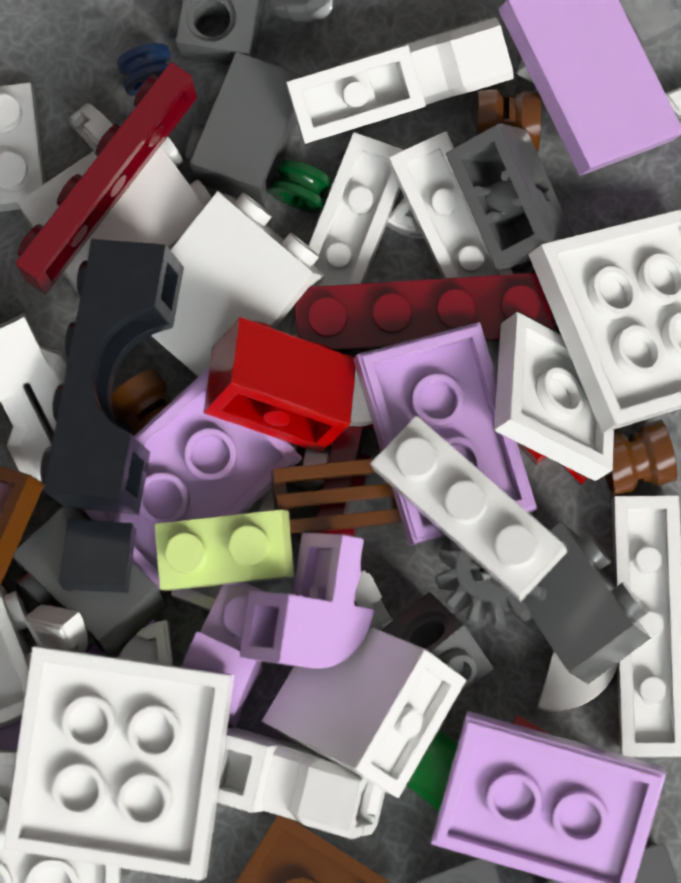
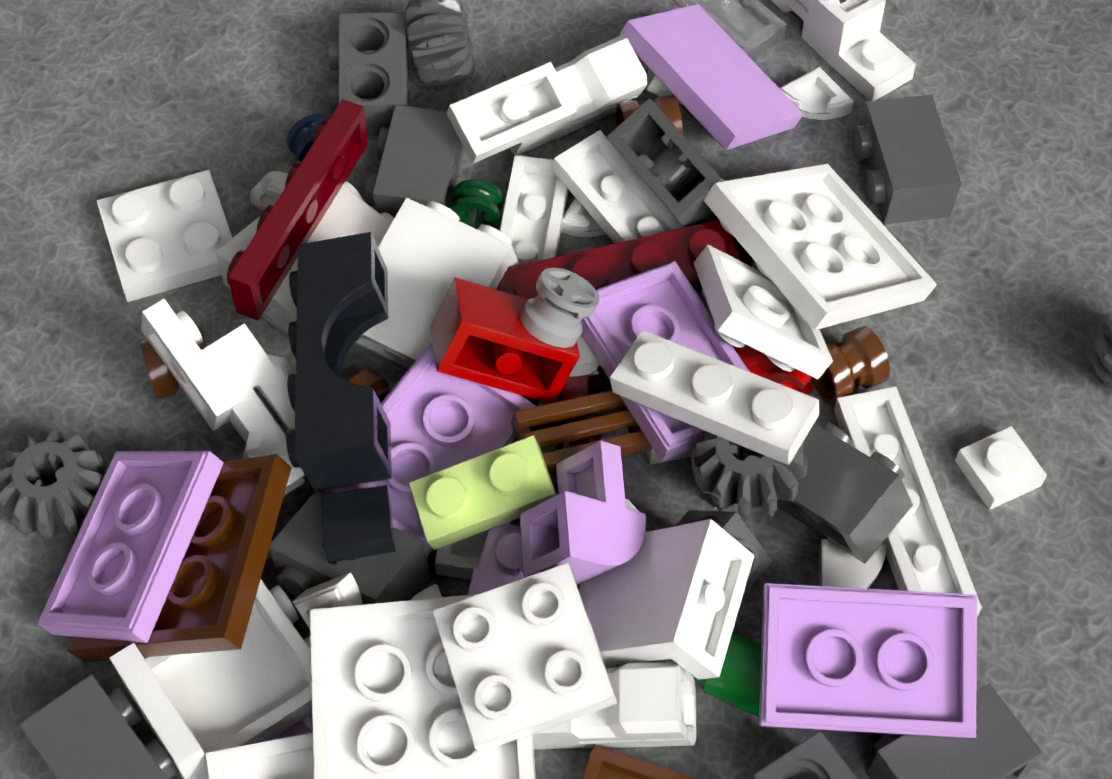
camera: 20 degrees left, 20 degrees down
(218, 747) = (524, 657): none -> white plate
(338, 372) = (559, 307): none -> light grey wheel

